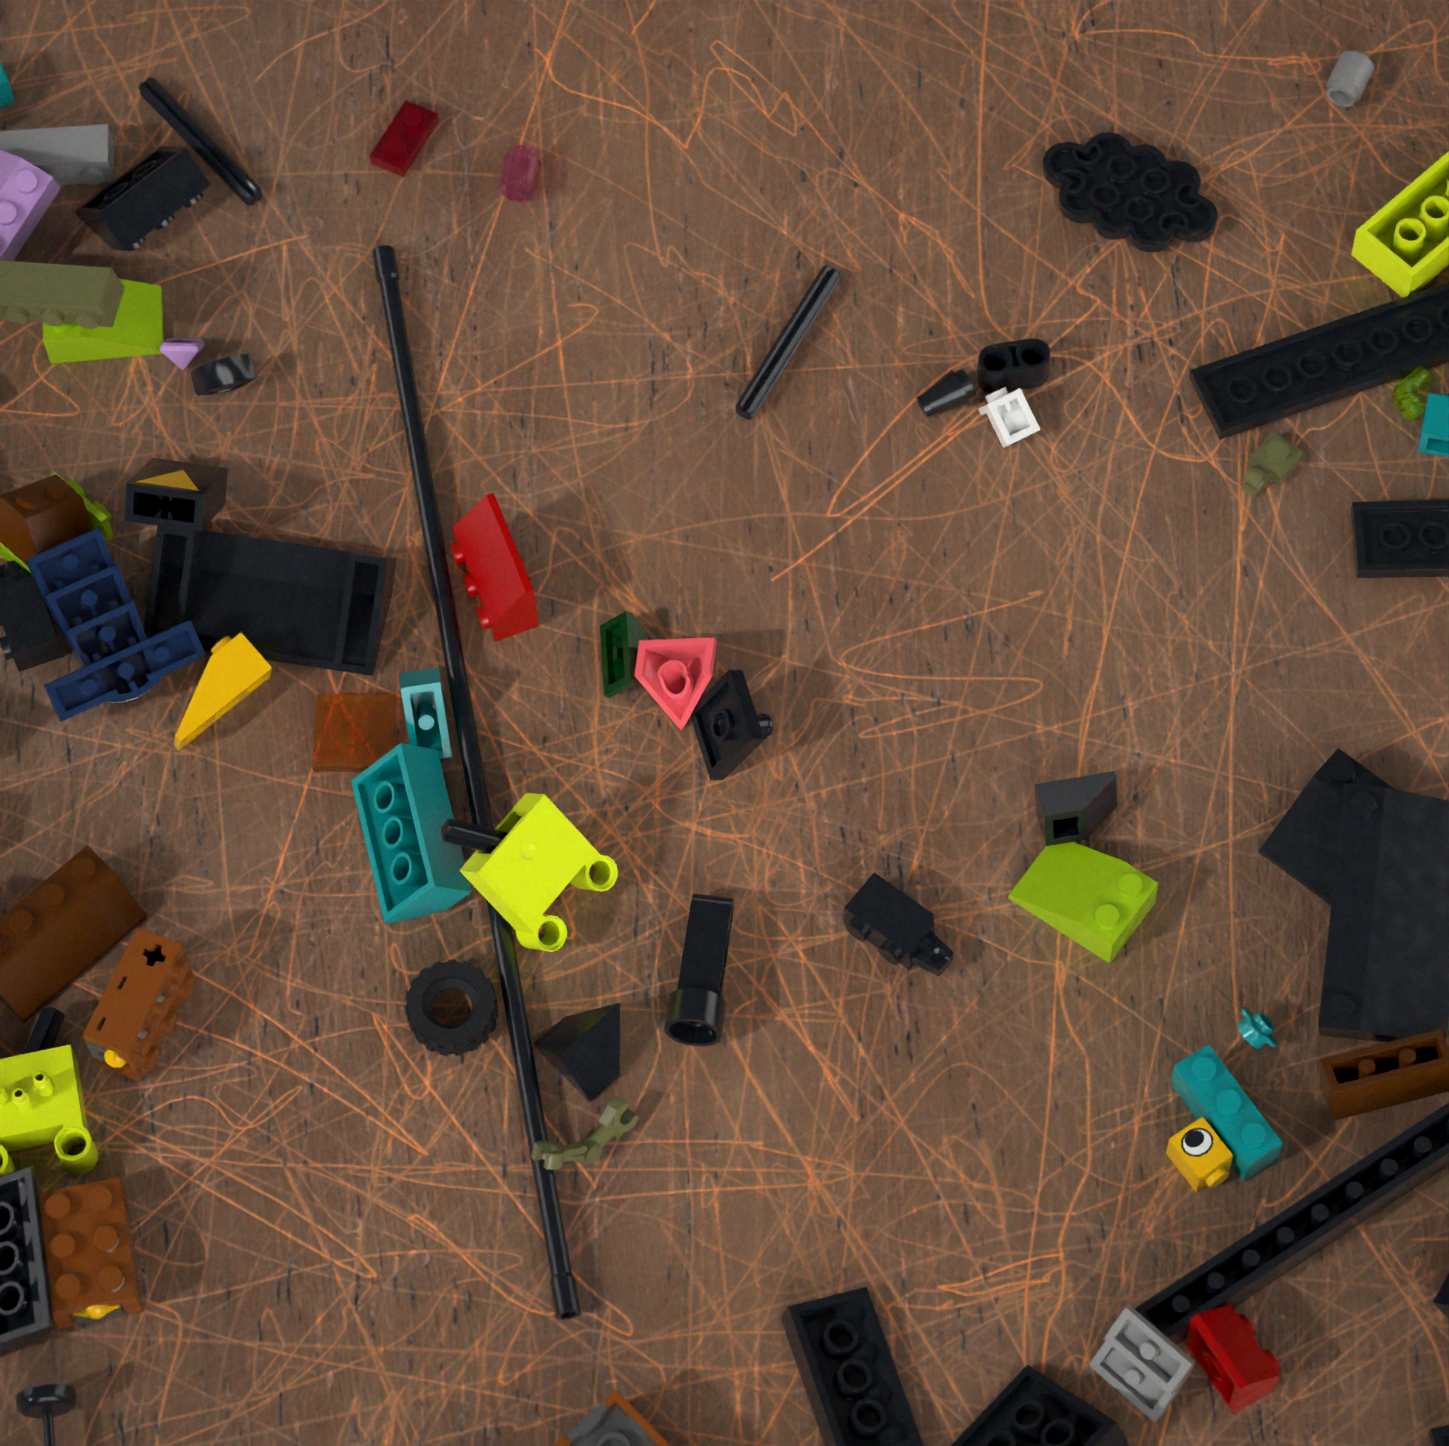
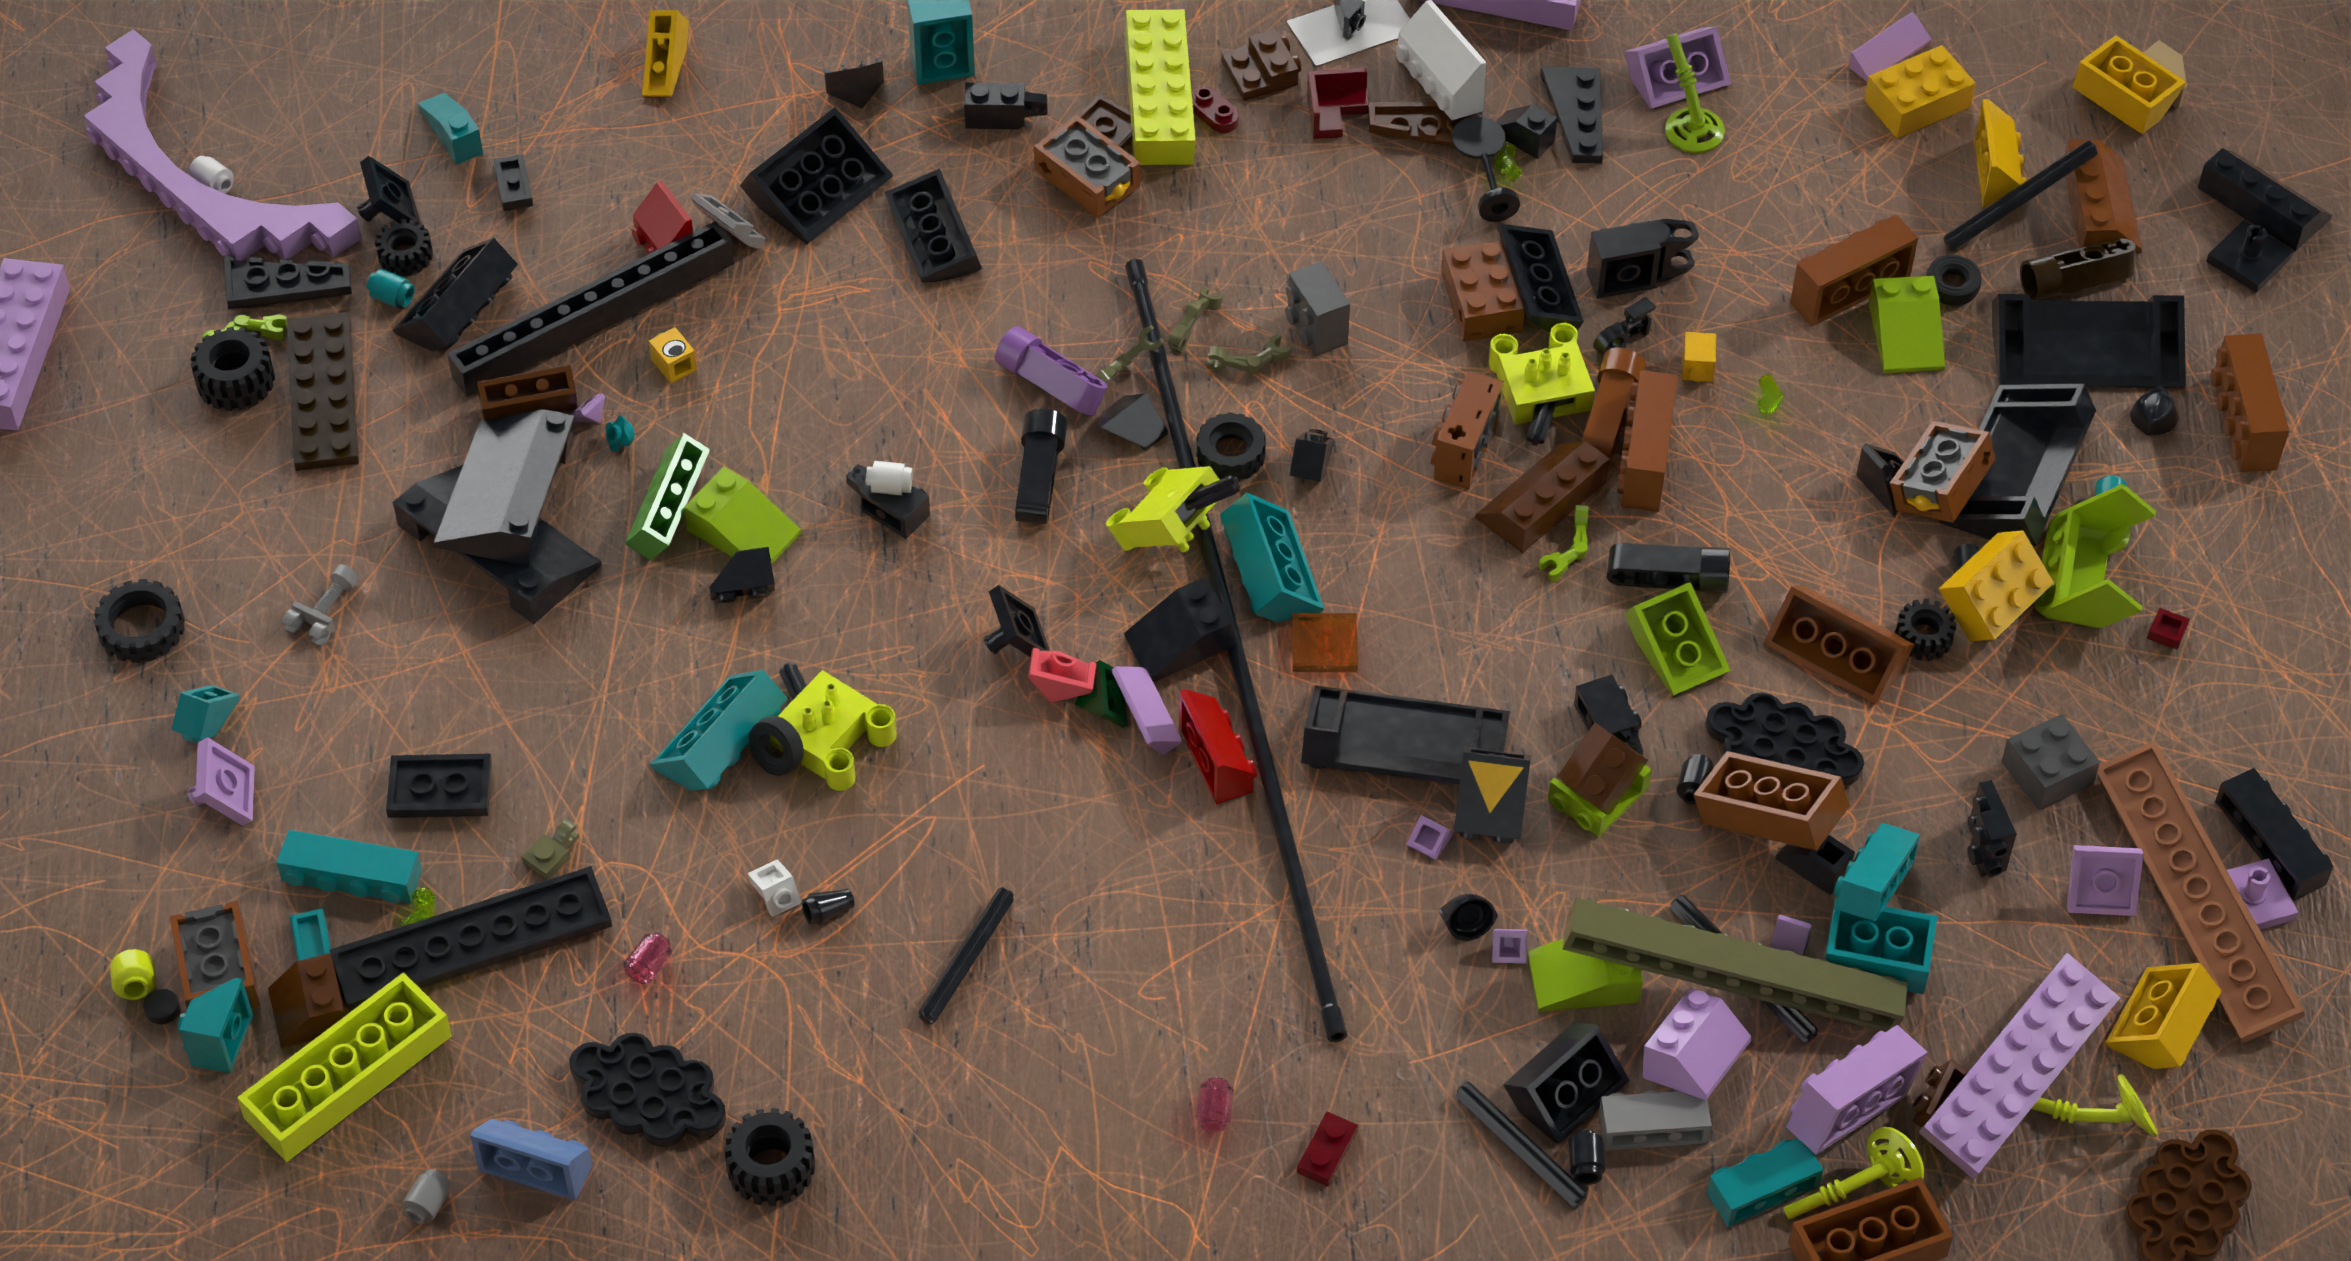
camera: 175 degrees right, 10 degrees down
(25, 855) = (1576, 552): none -> lime piece
(103, 629) = (1537, 688): dark blue slope -> none
(133, 119) = (1586, 1157): none -> black brick
(227, 679) = (1435, 662): yellow slope -> none
(254, 484) = (1429, 837): none -> lavender slope
(320, 1202) = (1317, 308): none -> dark grey brick
(346, 989) = (1311, 455): none -> black slope
(425, 710) = (1267, 649): teal slope -> none
(457, 1149) = (1253, 364): none -> olive piece
(487, 1210) = (1181, 334): none -> olive piece
(527, 723) = (1181, 631): none -> black slope
(576, 632) = (1147, 708): none -> lavender slope
(722, 1141) = (1029, 357): none -> medium lavender beam
(894, 912) = (889, 478): none -> white brick
(961, 612) = (829, 722): none -> neon yellow piece
(997, 86) = (776, 1180): none -> black tyre
(1012, 360) = (767, 930): black beam -> none
(1017, 566) = (787, 737): none -> black tyre
(1089, 604) = (719, 730): none -> teal slope
(1144, 330) = (648, 957): none -> clear pink brick
(1182, 917) = (667, 496): none -> bright green brick
(1216, 1095) = (650, 377): teal brick -> none
(1244, 104) = (531, 1157): none -> medium blue slope
(1304, 1073) = (590, 410): none -> lavender slope

